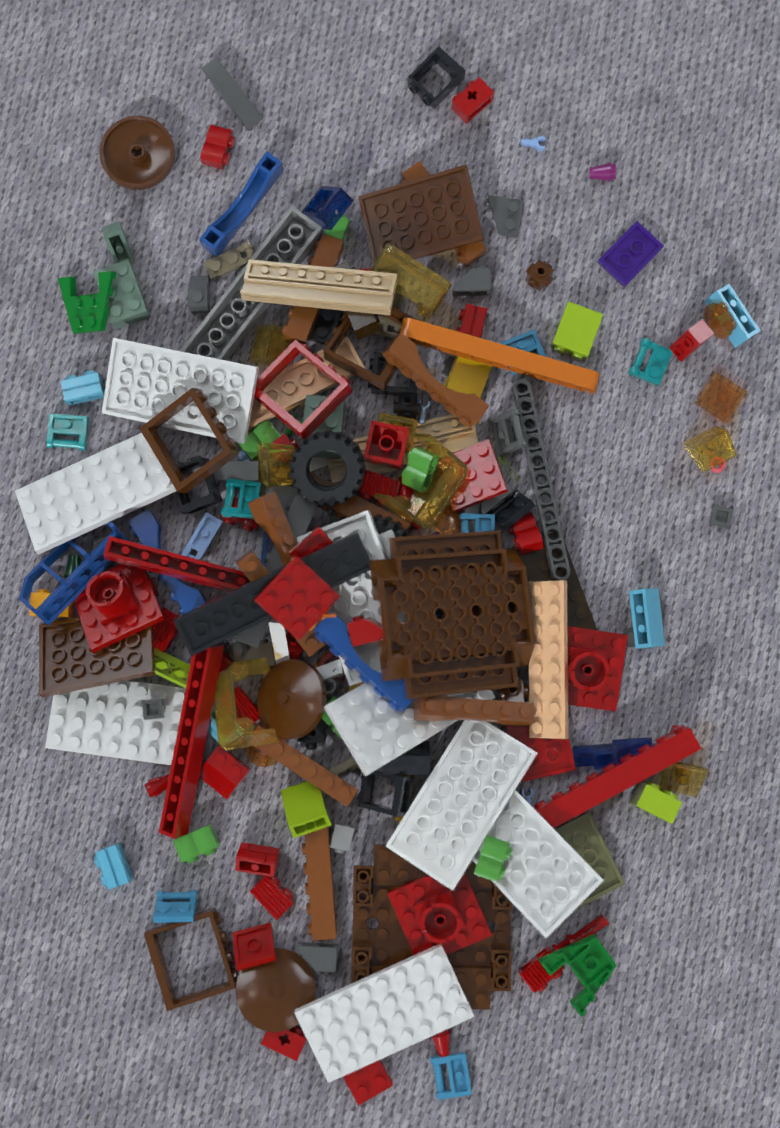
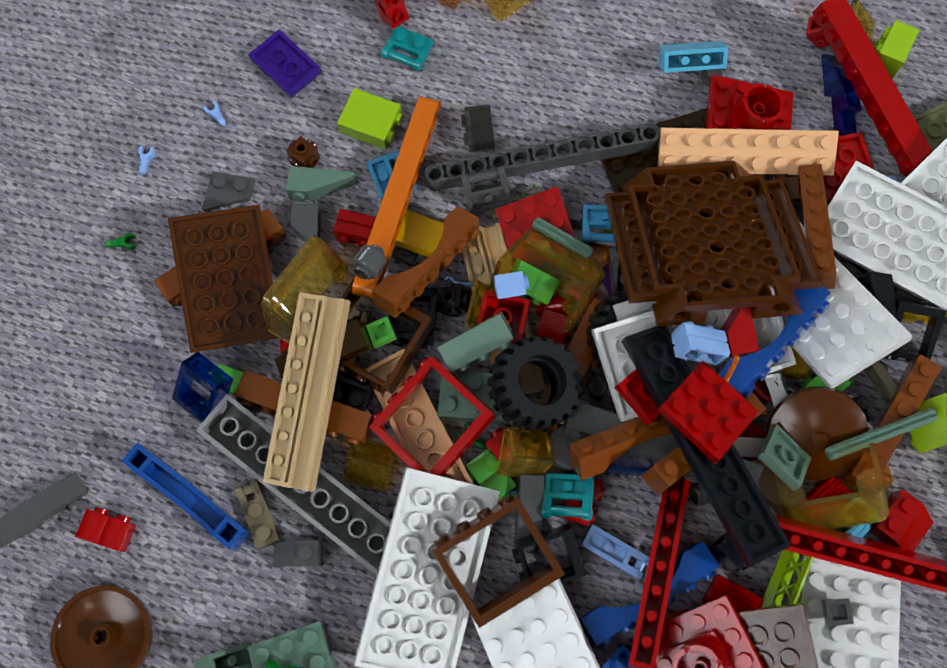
camera: 90 degrees left, 10 degrees down
(157, 785) = (927, 607): red cone -> none
(267, 666) = (784, 457): none -> sand green plate
(287, 747) = (881, 434): none -> sand green axle
(355, 596) = (700, 343): none -> light blue brick
(361, 421) = (477, 343): none -> sand green brick
(370, 344) = (381, 332): none -> bright green plate
(410, 446) = (510, 284): none -> light blue brick
(425, 328) = (369, 262): none -> dark grey head
(447, 64) = (41, 246): black window -> none
(457, 132) = (121, 242): none -> green piece
(459, 494) = (562, 237): none -> sand green axle
(468, 109) = (80, 212): red brick -> none
(512, 283) = (314, 182): none -> sand green slope
(512, 509) = (579, 184): black plate -> none
(526, 534) = (602, 174): red brick -> none
(570, 426) = (479, 128): none -> clear smoke brick
(579, 199) = (215, 113): none -> light blue piece
(603, 172) = (188, 87): magenta cone -> none

